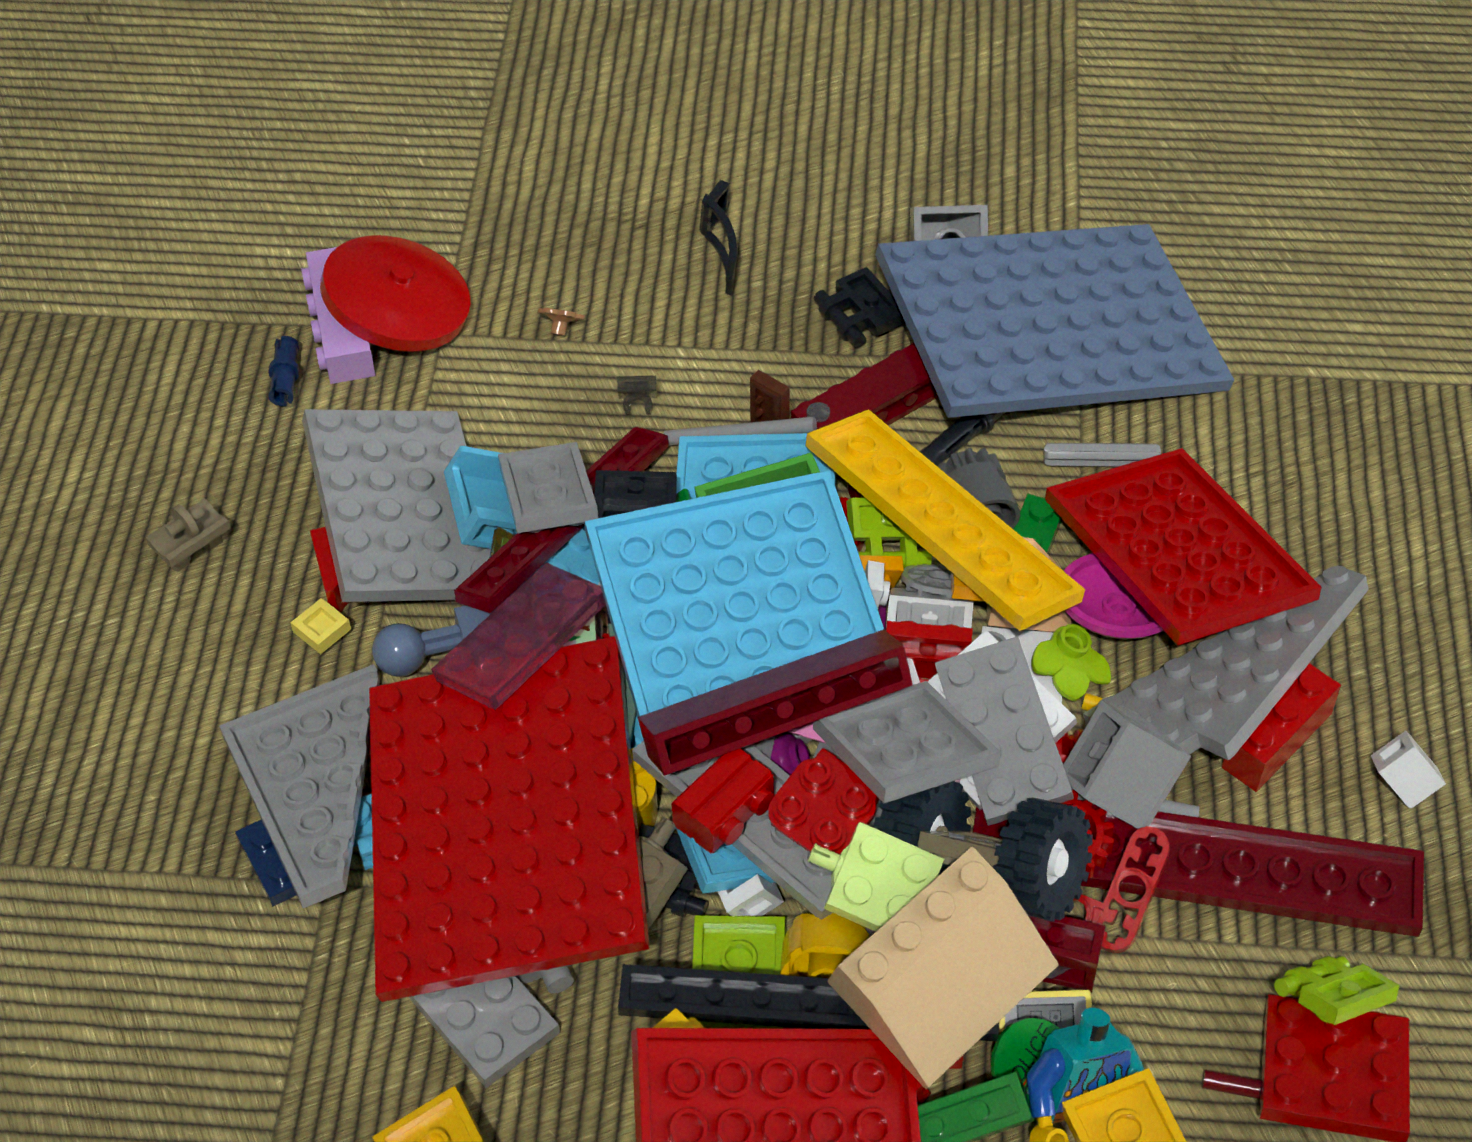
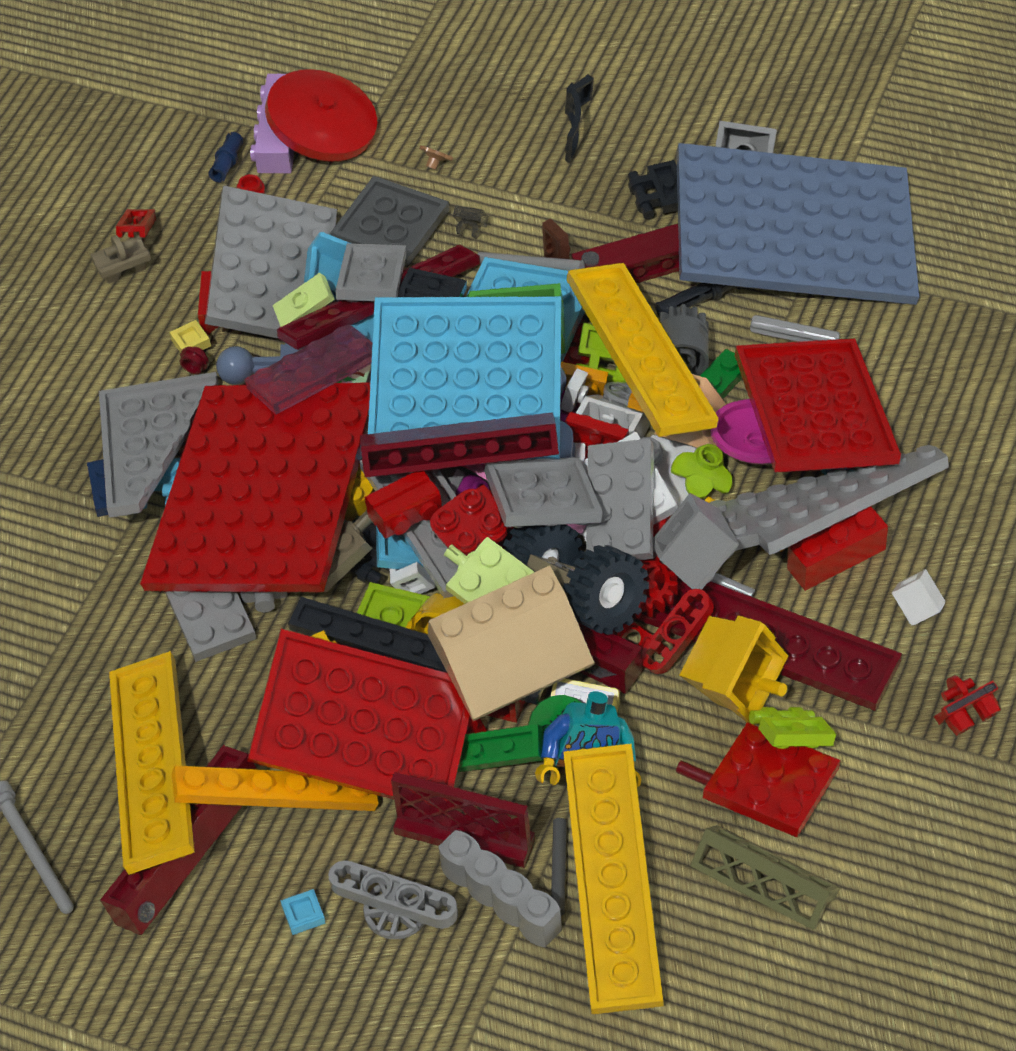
camera: 20 degrees right, 0 degrees up
(195, 489) = (141, 223): none -> red tile
(330, 399) = (251, 183): none -> red plate
(336, 654) = (193, 360): none -> dark red plate
(471, 545) = (304, 300): none -> yellowish green plate
(532, 407) = (391, 216): none -> dark grey plate
(1237, 921) = (736, 664): none -> yellow piece

